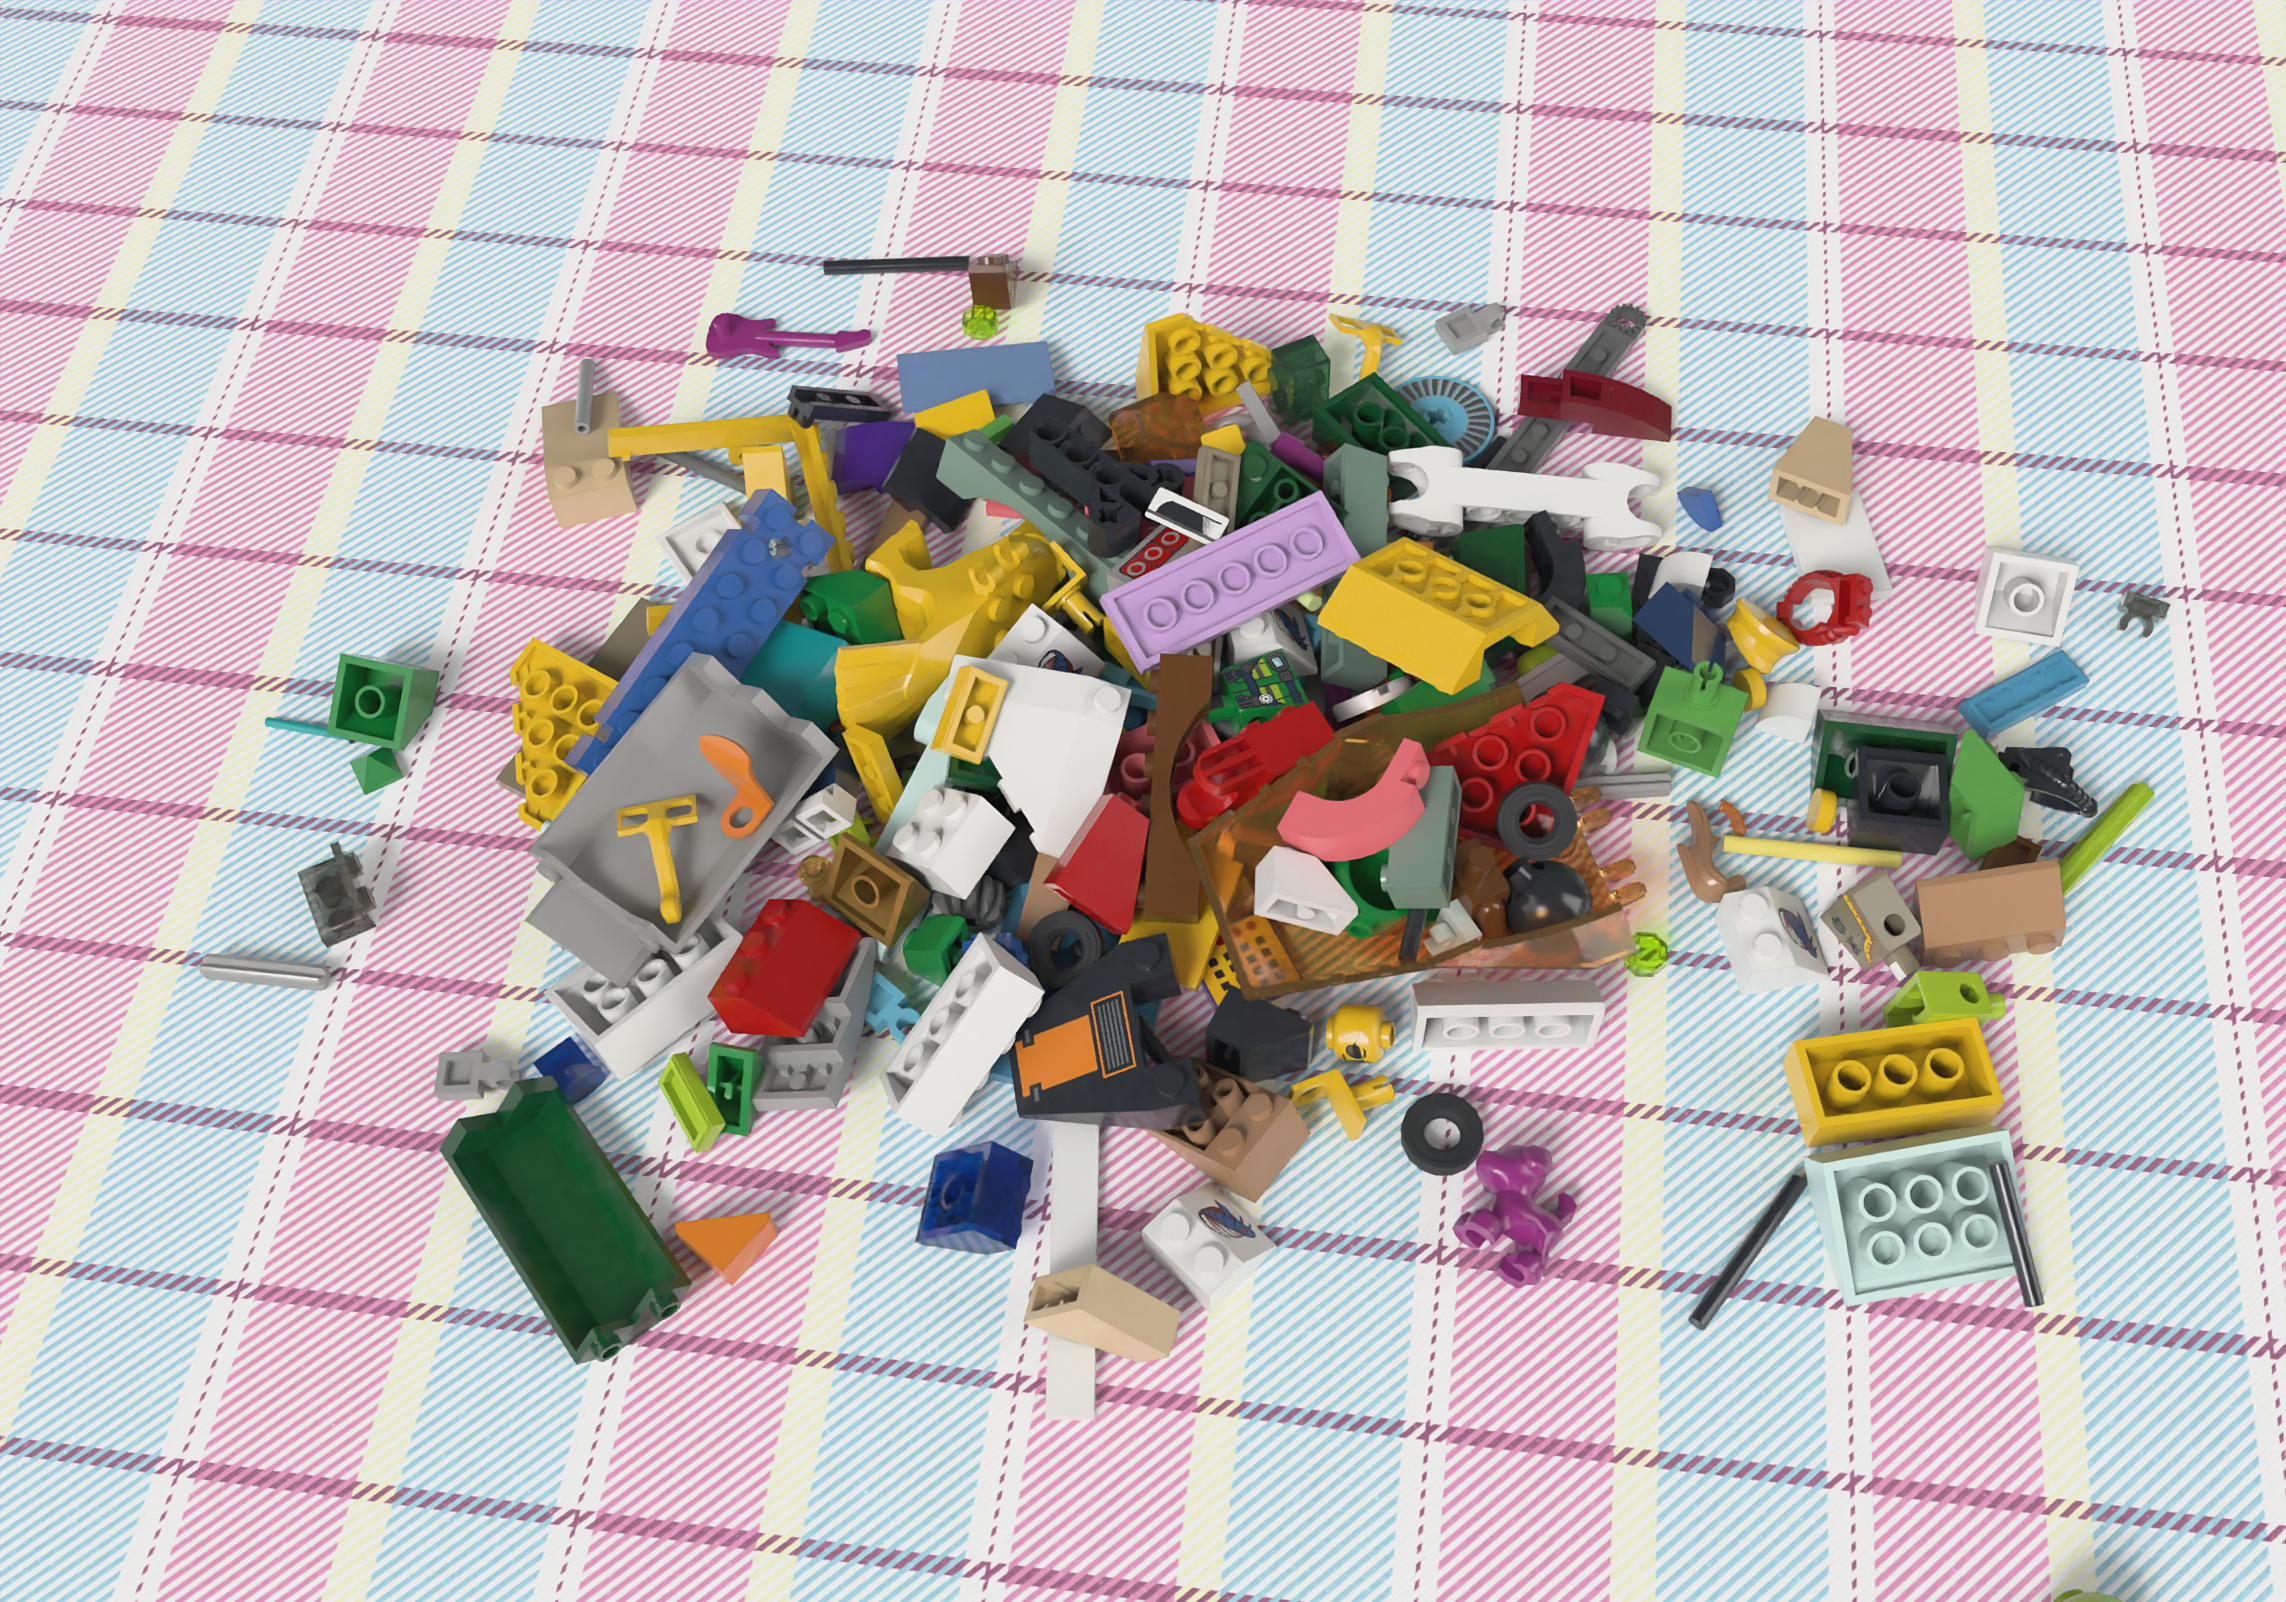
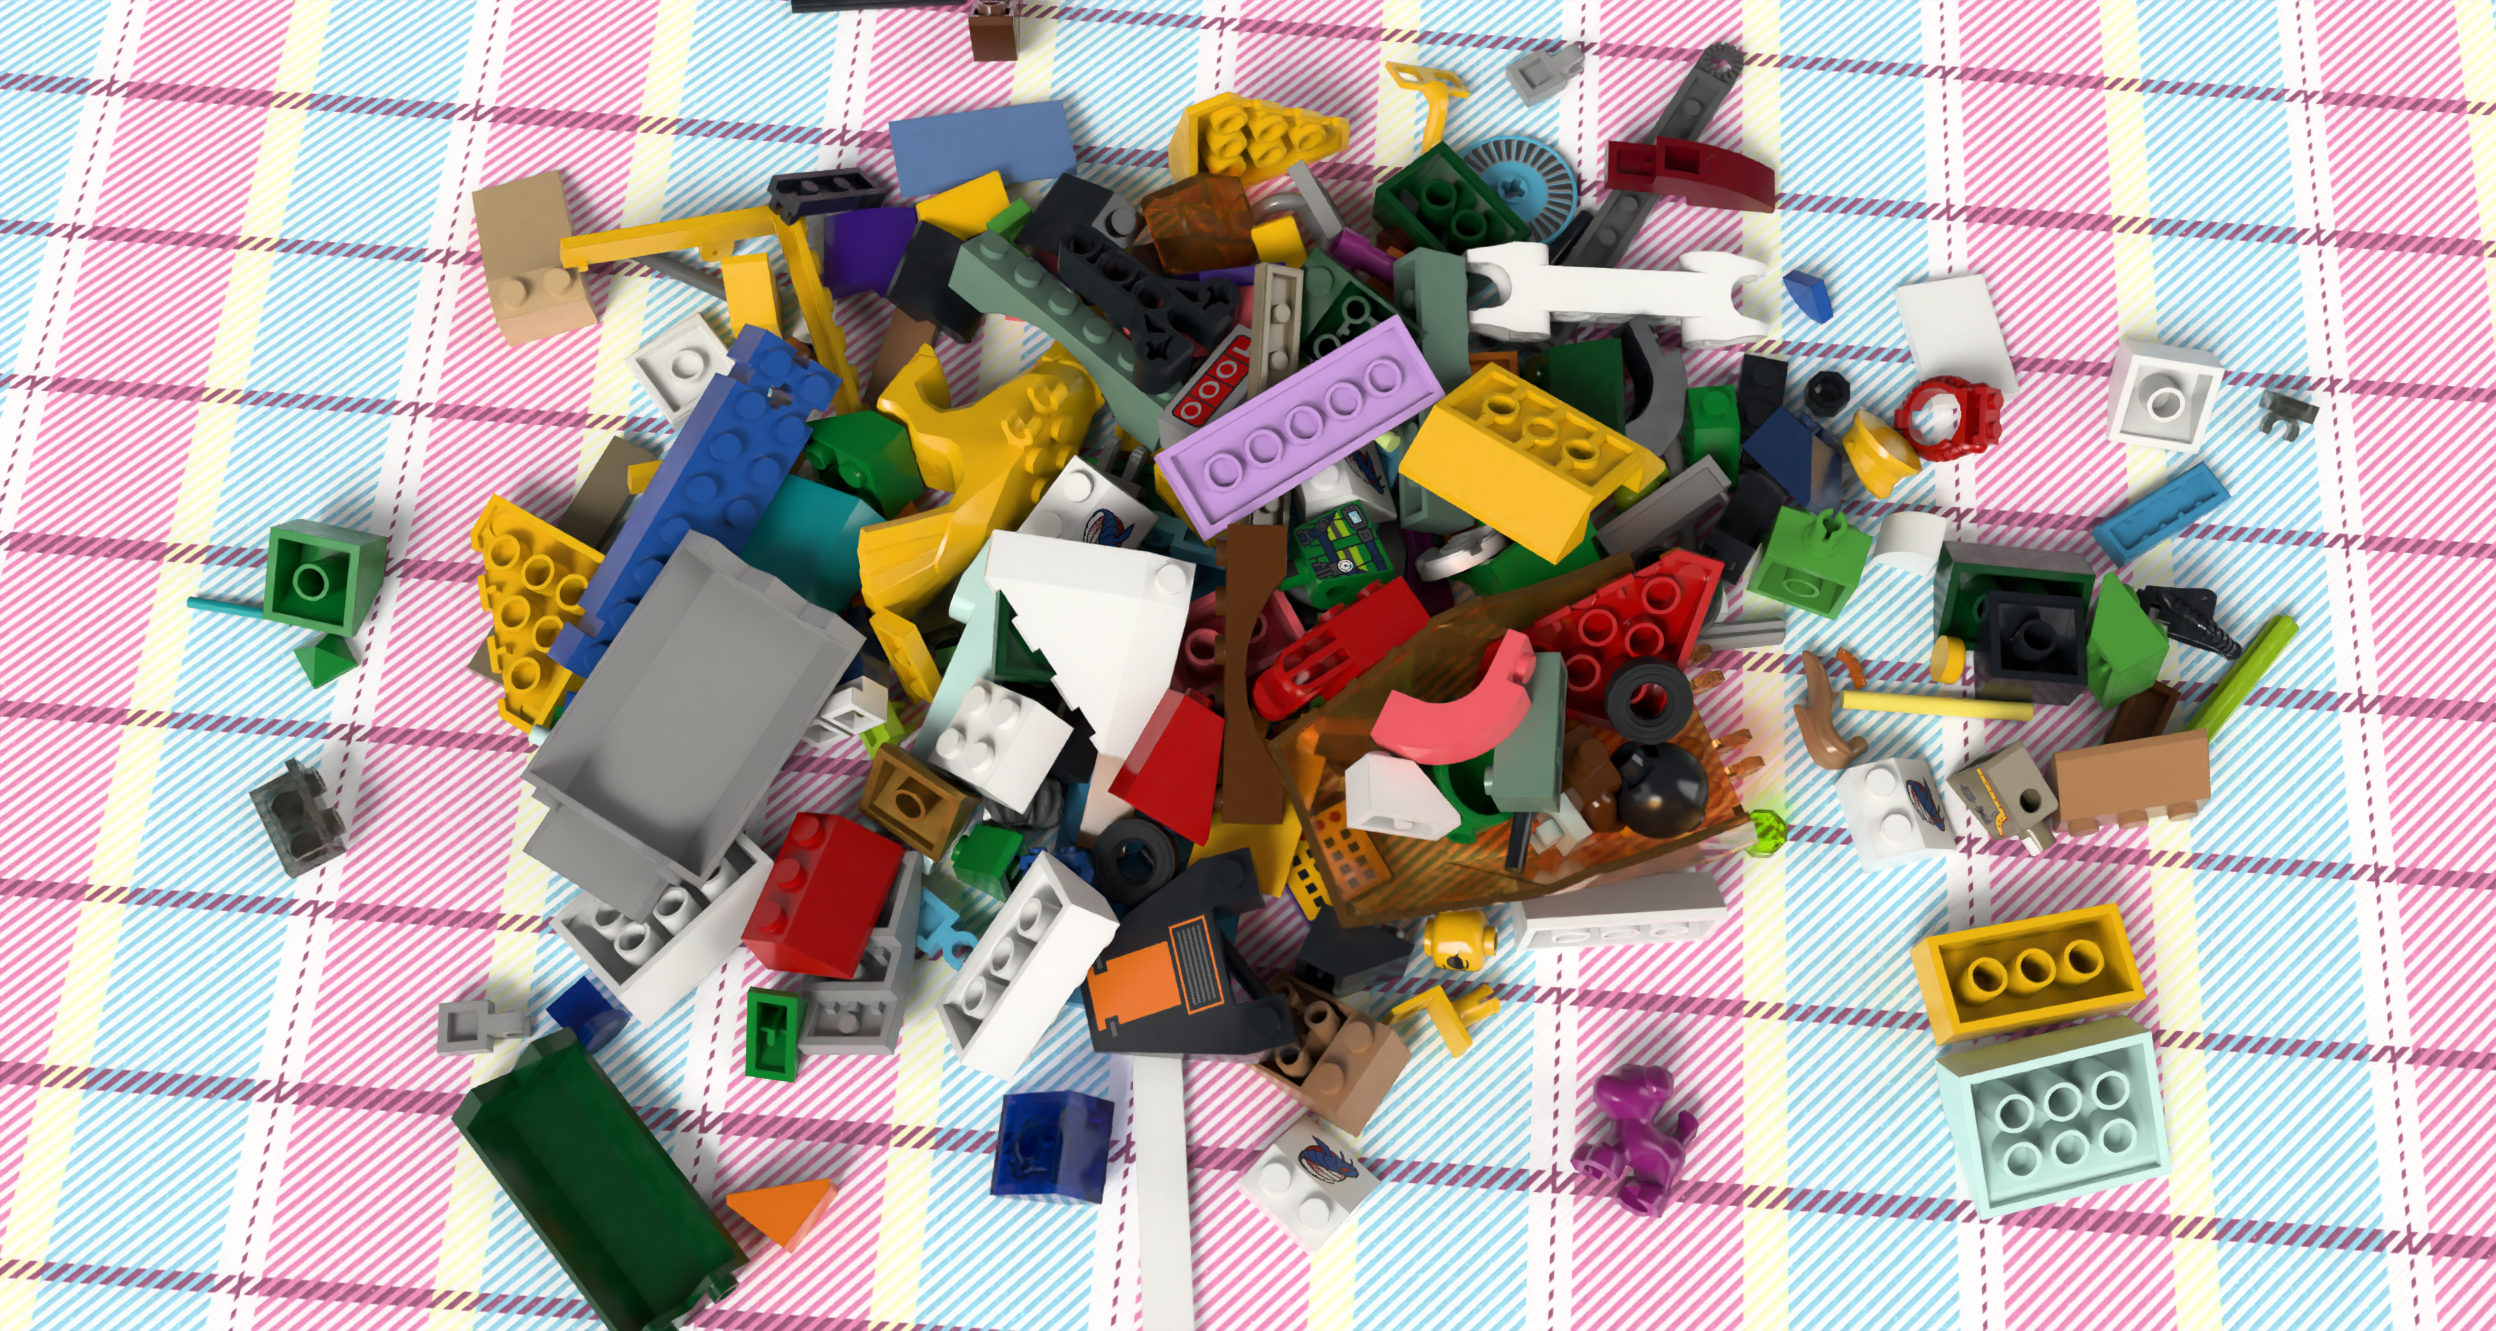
camera: 10 degrees left, 10 degrees up
(265, 972) = (224, 911): light grey axle -> none
(584, 396) = (523, 181): light grey piece -> none
(658, 829) = (668, 745): yellow piece -> none
(691, 1102) = (729, 1049): lime tile -> none
(735, 766) = (758, 675): orange piece -> none
(736, 335) = (695, 96): magenta piece -> none
(814, 873) = (847, 777): clear yellow pin -> none
(969, 714) = (1015, 603): yellow slope -> none
(980, 322) = (982, 76): clear neon green tile -> none
(1070, 596) = (1118, 442): yellow bracket -> none
(1103, 1313) = (1201, 1275): tan slope -> none
(1186, 517) = (1246, 349): sticker -> none
(1298, 379) = (1356, 150): clear green brick -> none
(1448, 1107) = (1573, 1026): black tyre -> none
(1597, 648) = (1704, 482): dark grey tile -> none
(1683, 570) = (1794, 386): white brick -> none
(1747, 1252) = (1877, 1165): black bar -> none
(1751, 682) = (1868, 515): yellow tile -> none
(1816, 472) = (1939, 253): tan slope -> none
(1943, 997) = (2082, 879): lime torso -> none
(2016, 1233) = (2156, 1138): bar -> none

